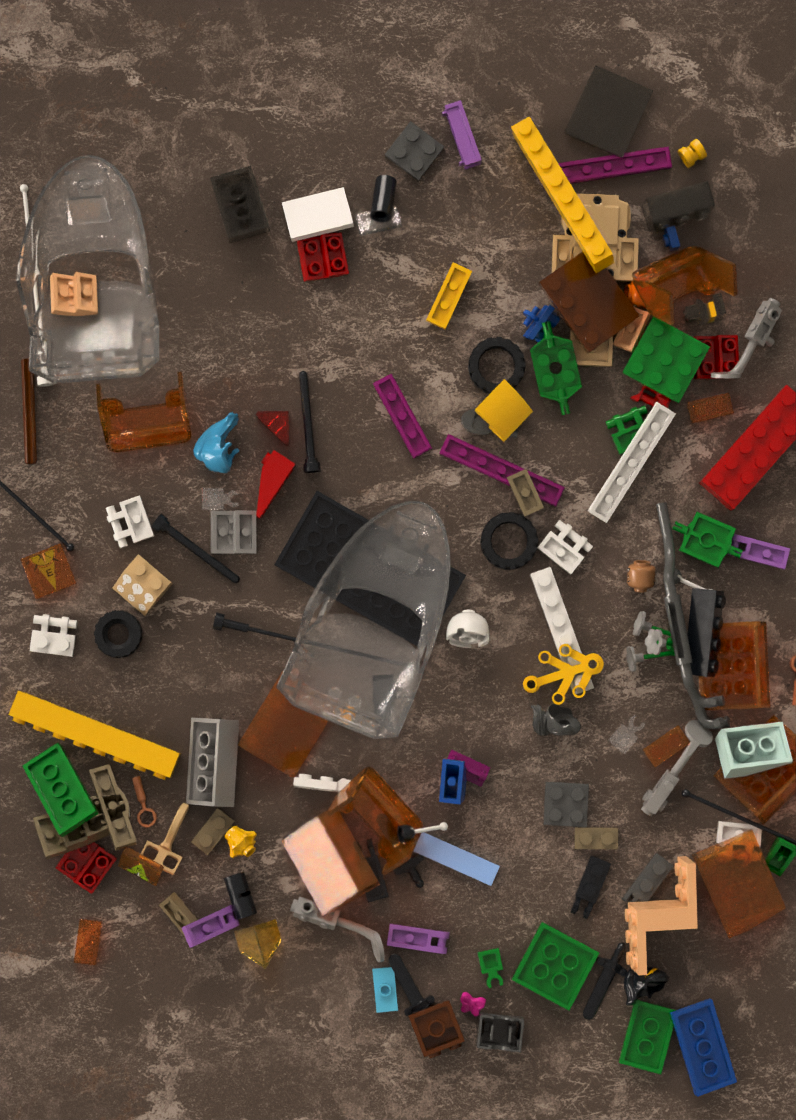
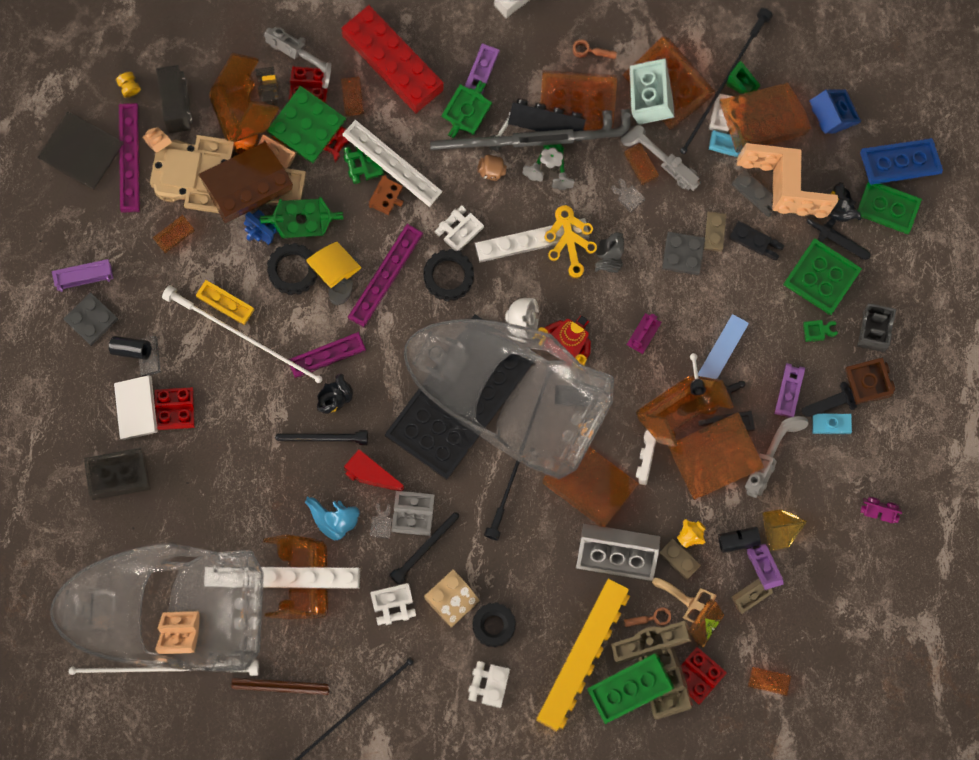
camera: 80 degrees left, 10 degrees down
(48, 571) = (429, 683): clear orange tile -> none
(145, 427) = (310, 577): none -> white plate
(277, 423) = (321, 462): clear red slope -> none
(290, 1062) = (889, 510): none -> magenta hinge
(353, 429) = (334, 395): none -> black hair
(448, 683) = (572, 337): none -> red torso
(451, 234) = (170, 294): none -> white piece
(453, 781) = (655, 342): blue slope -> none
(472, 1004) = (850, 350): dark pink piece -> none
(522, 228) = (173, 234): none -> clear orange plate
(525, 492) = (408, 255): dark tan plate -> none
(562, 195) = (149, 191): yellow brick -> none
(597, 454) = (383, 191): none -> dark orange piece
(628, 194) = (156, 139): none -> light nougat plate
(671, 239) = (200, 110): blue plate -> none
(701, 838) = (722, 143): none -> medium azure plate
(757, 965) = (834, 111): none -> blue slope

